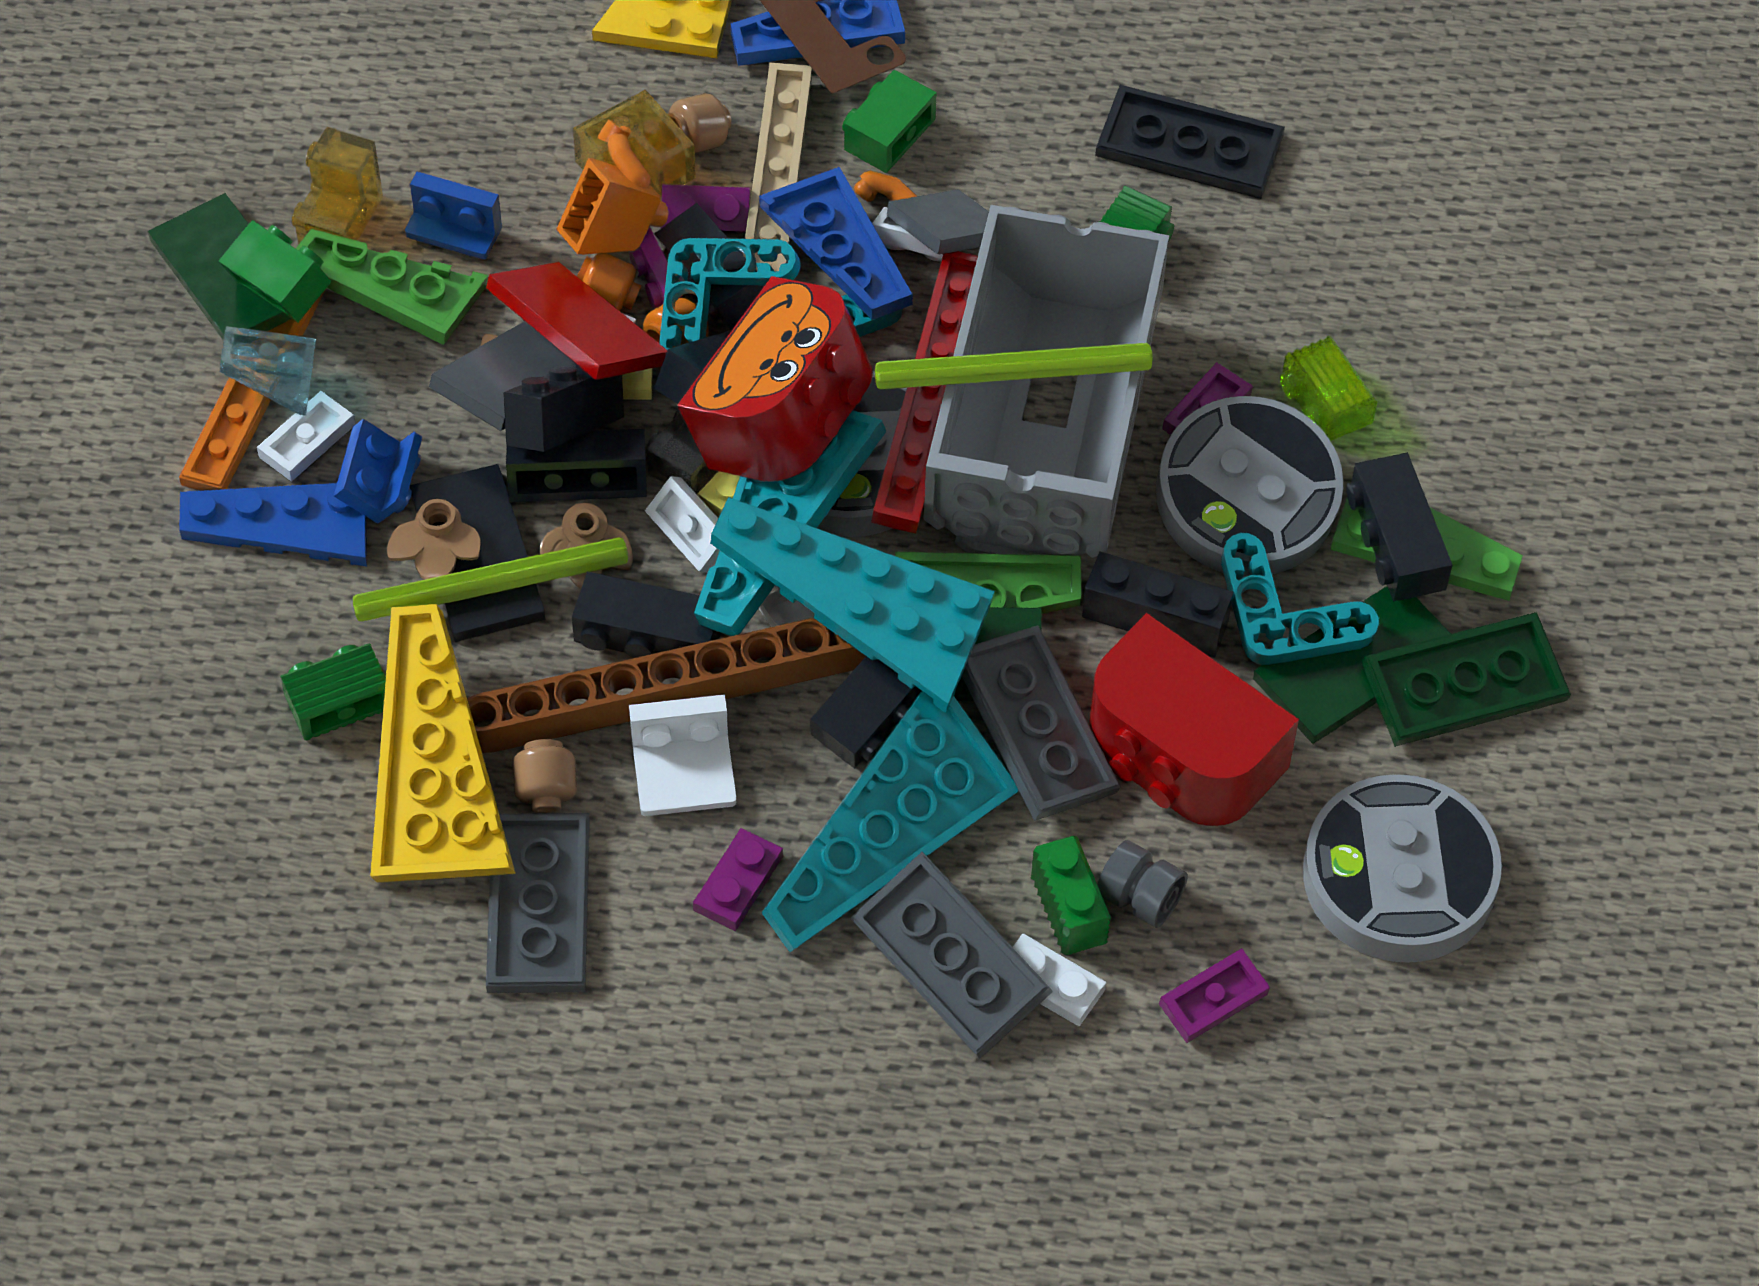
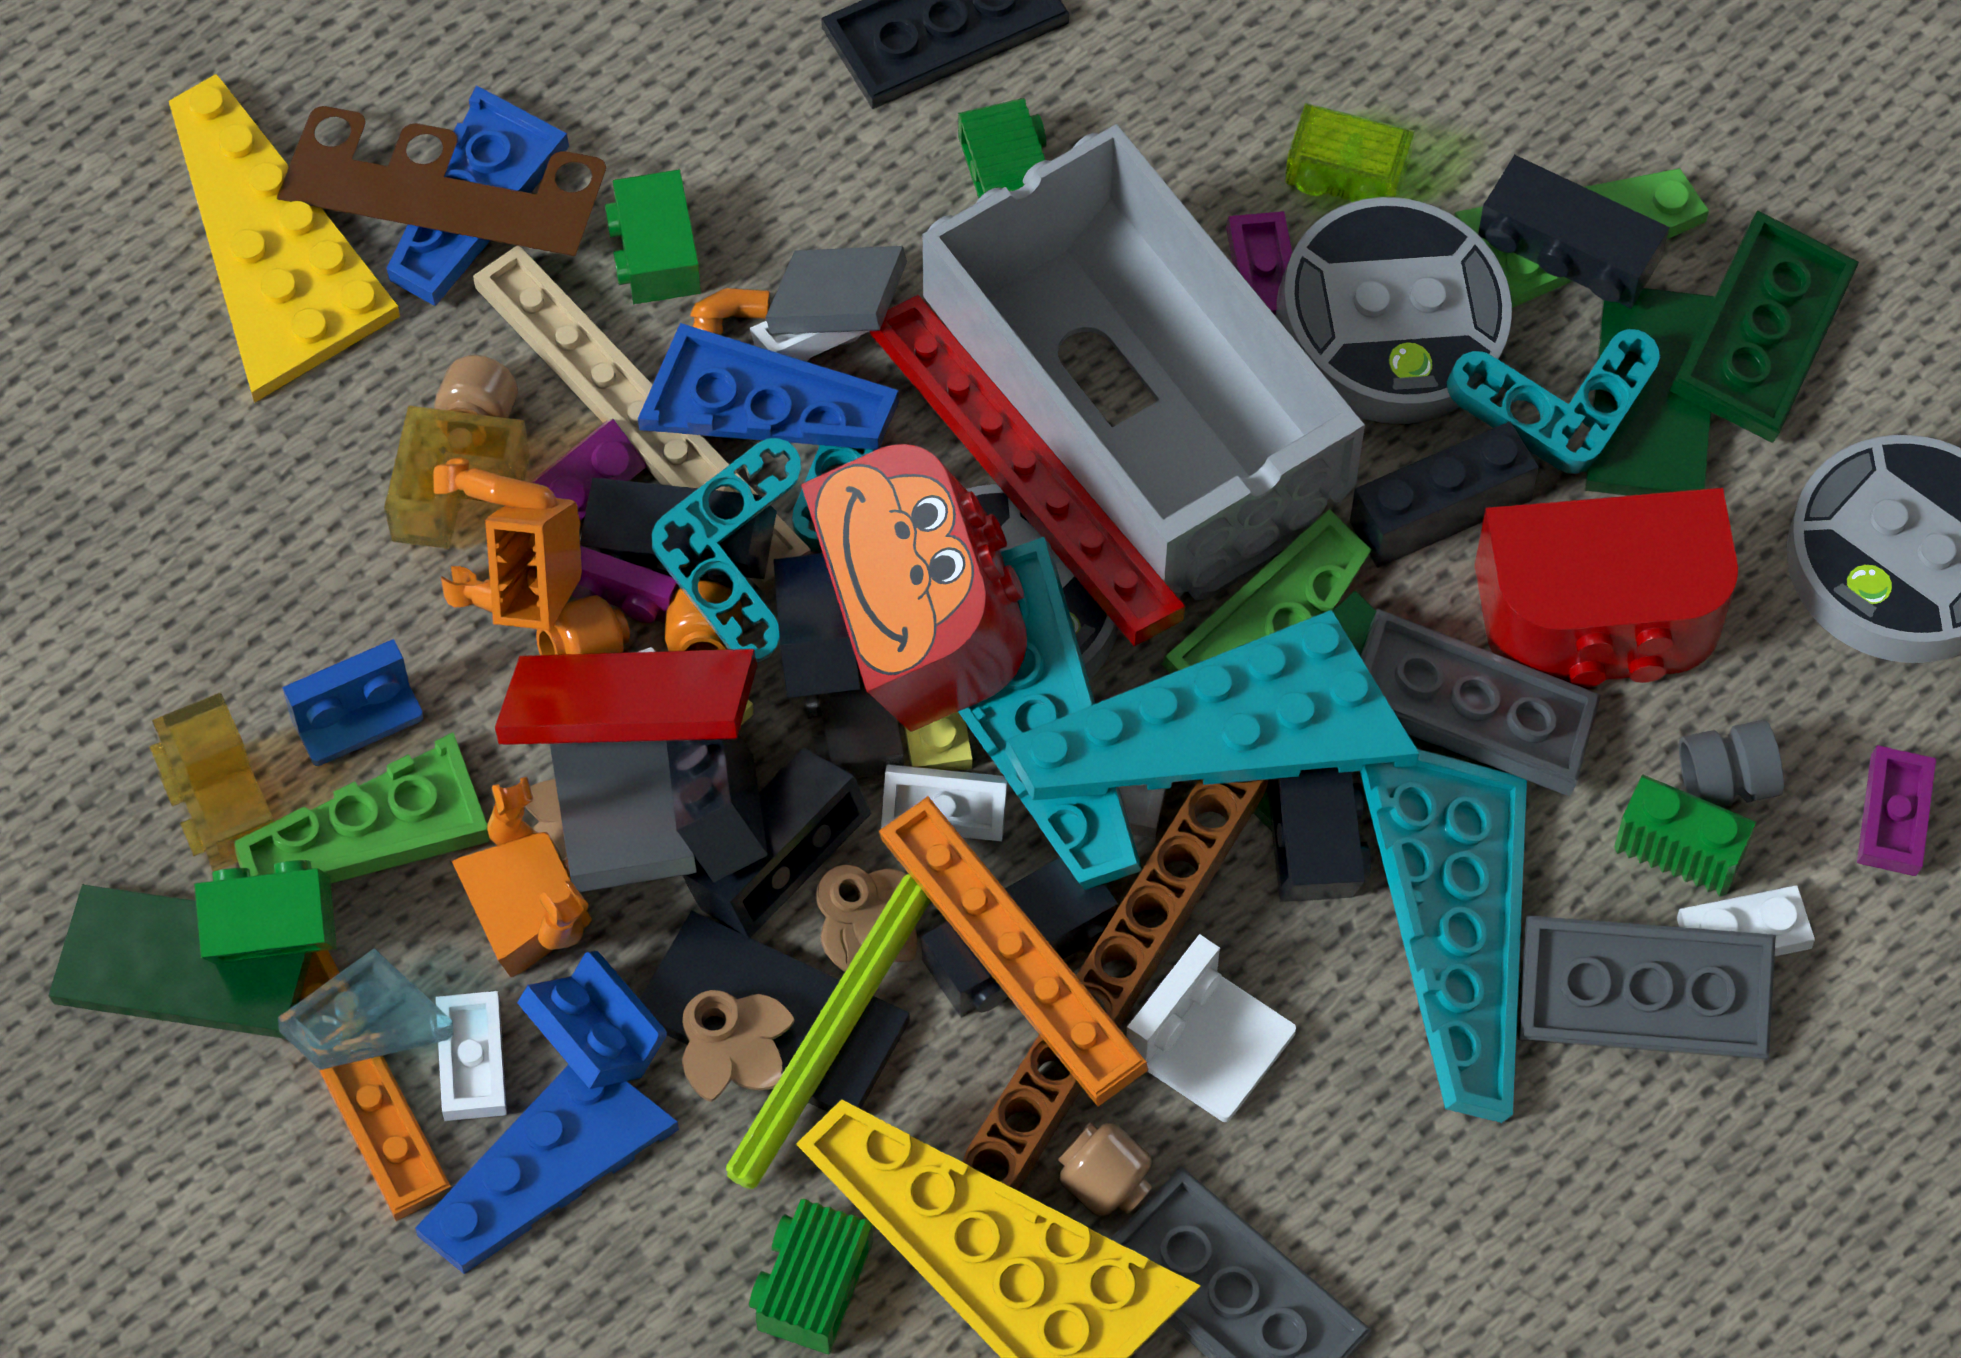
camera: 45 degrees left, 5 degrees up
(402, 383) = (522, 886): none -> orange torso
(618, 617) = (1014, 951): none -> orange tile
(738, 879) = (1380, 1099): magenta plate -> none
(1013, 366) = (1136, 375): lime axle -> none

